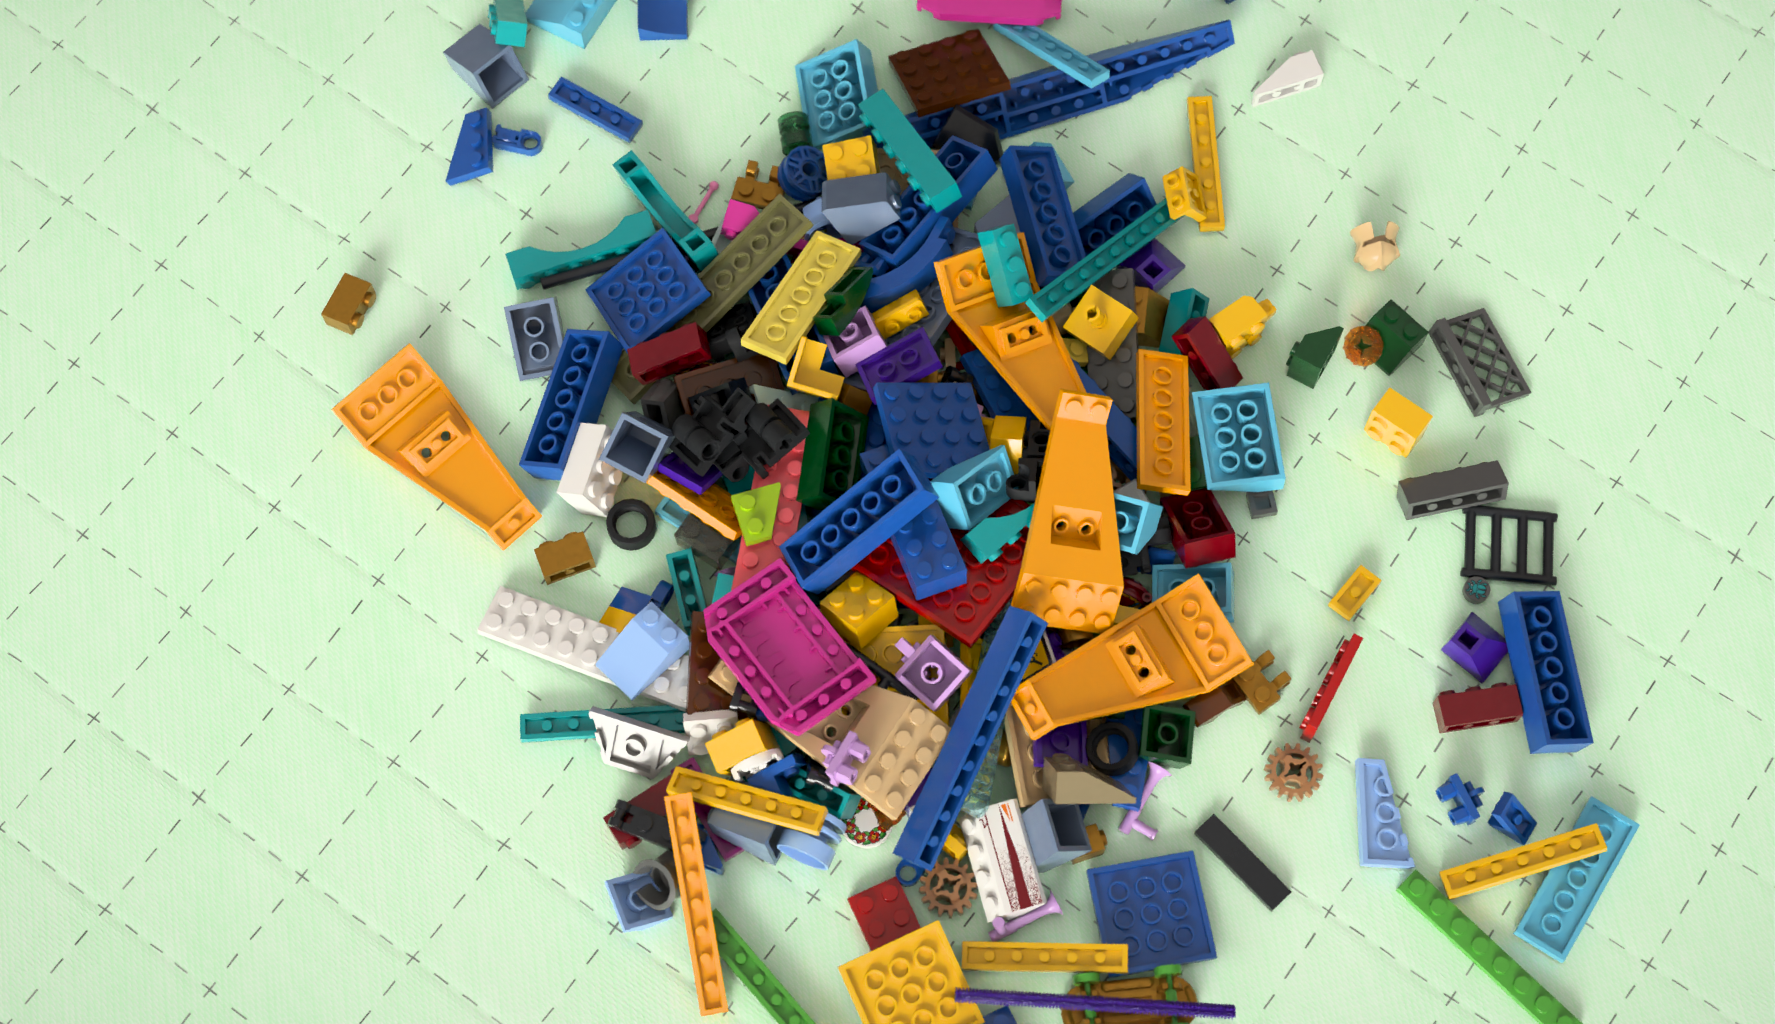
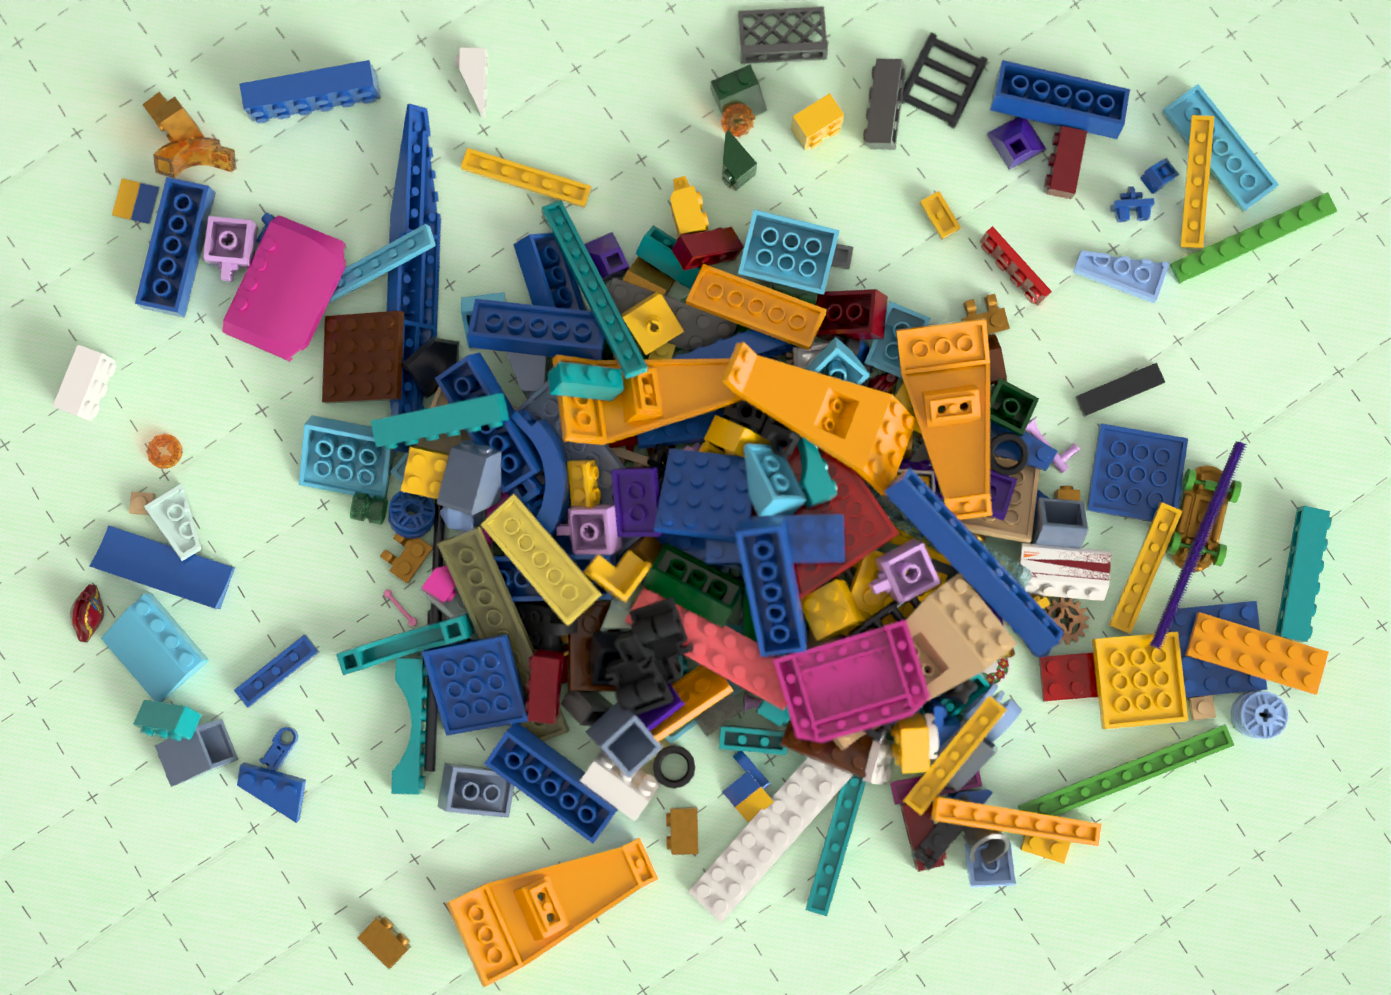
camera: 70 degrees left, 15 degrees up
(635, 744) = (866, 826): wing -> none
(643, 651) = (796, 795): light blue slope -> none
(679, 960) = (1045, 847): none -> yellow plate
(757, 512) = (722, 664): lime wing -> none
(841, 756) = (972, 675): lavender hips -> none
(843, 301) = (560, 525): dark green slope -> none
(1005, 929) = (1111, 592): lavender piece -> none
(1076, 783) = (1037, 488): dark tan slope -> none
(1184, 194) = (553, 207): yellow bracket -> none
(1298, 781) = (1068, 331): medium nougat gear -> none
(1375, 251) = (658, 73): tan helmet -> none
(1476, 590) = (970, 121): tile -> none

